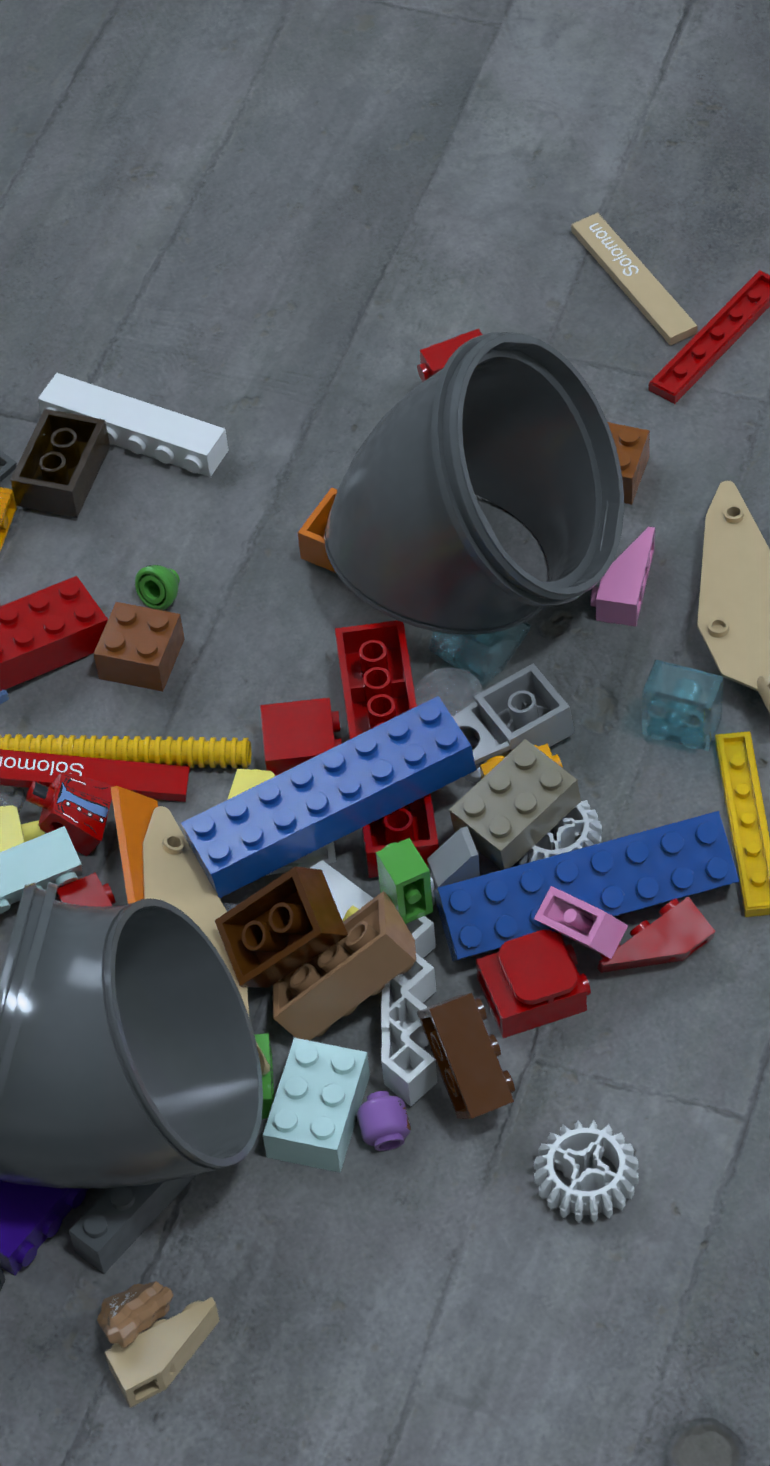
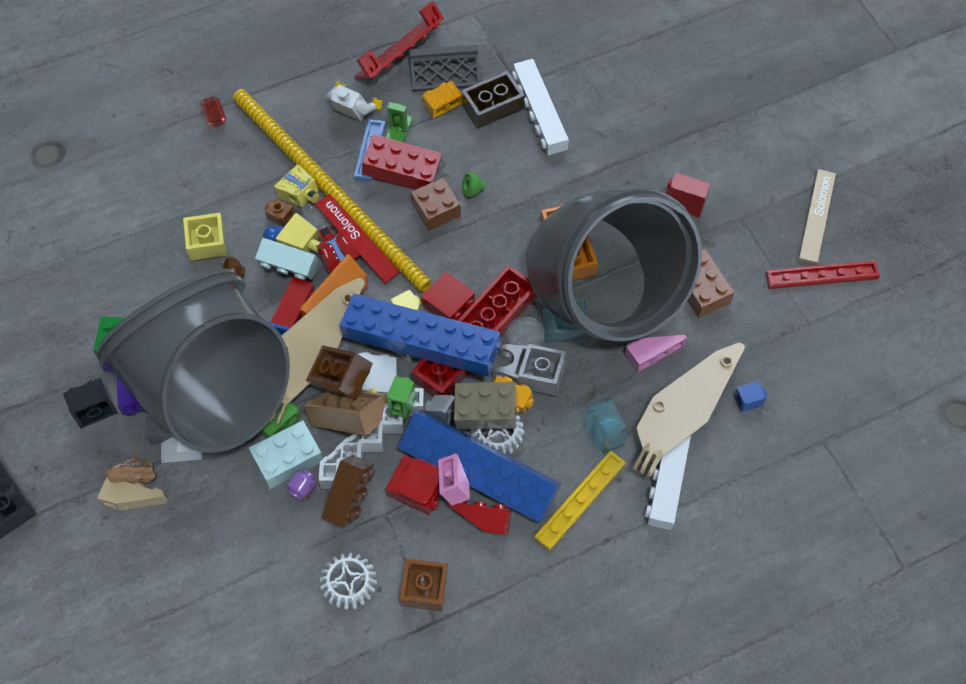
camera: 40 degrees right, 10 degrees up
(160, 1230) = (175, 451): none -> white slope
(688, 1081) = (424, 584): none -> dark orange brick

